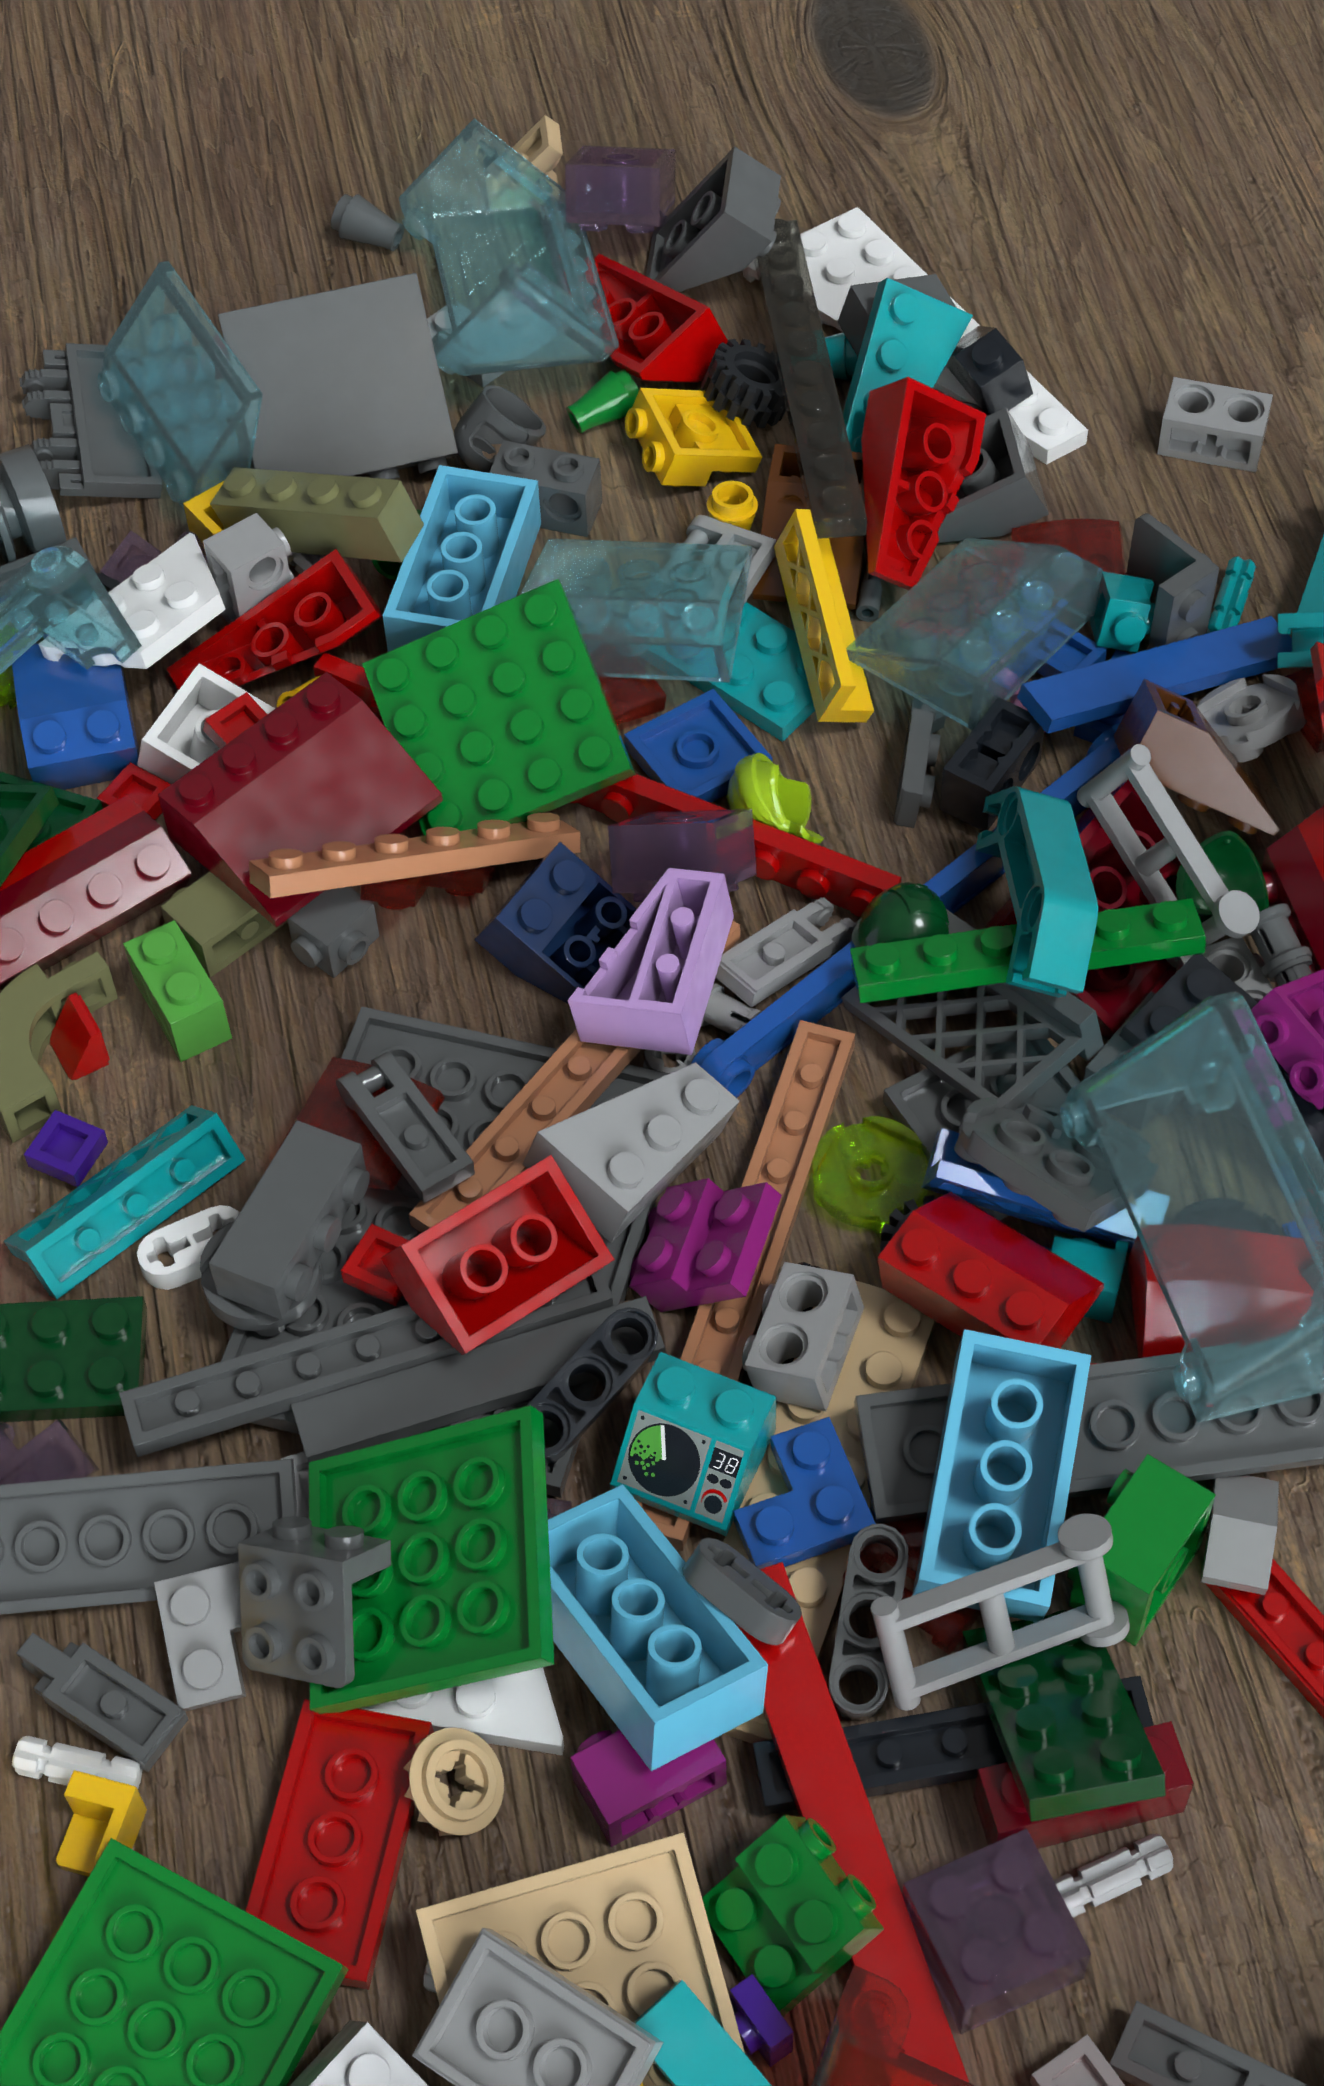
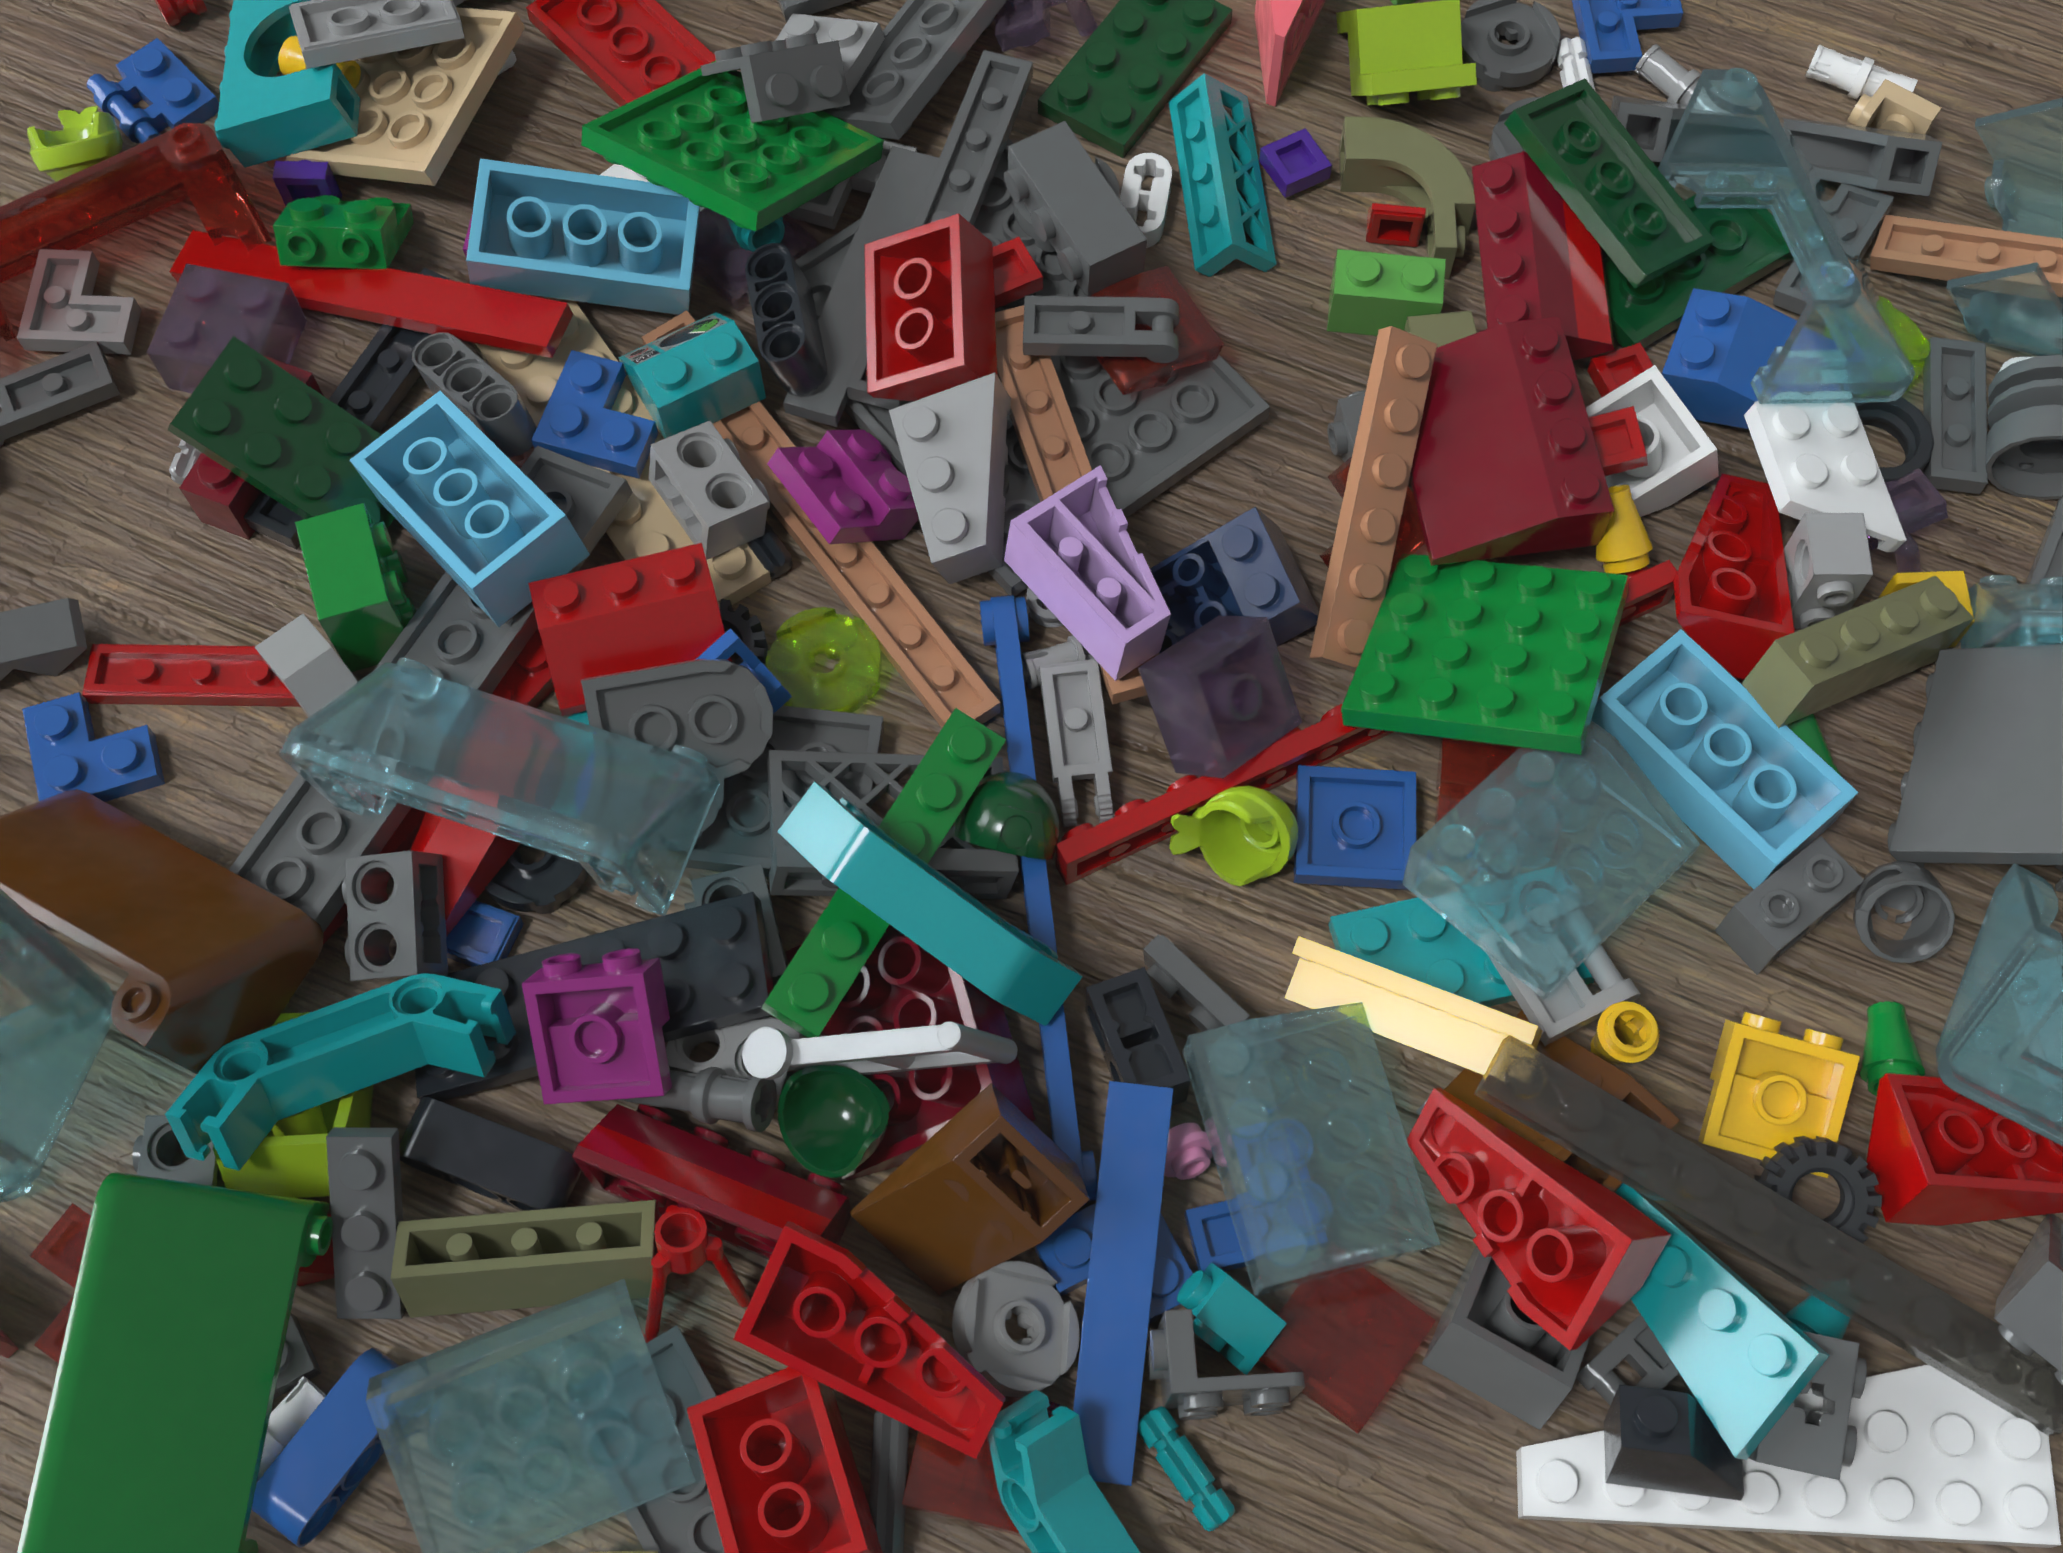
camera: 125 degrees right, 10 degrees up
(475, 1769) = (596, 91): tan gear -> none
(742, 1591) = (532, 276): dark grey beam -> none
(1097, 1623) = (350, 476): light grey piece -> none

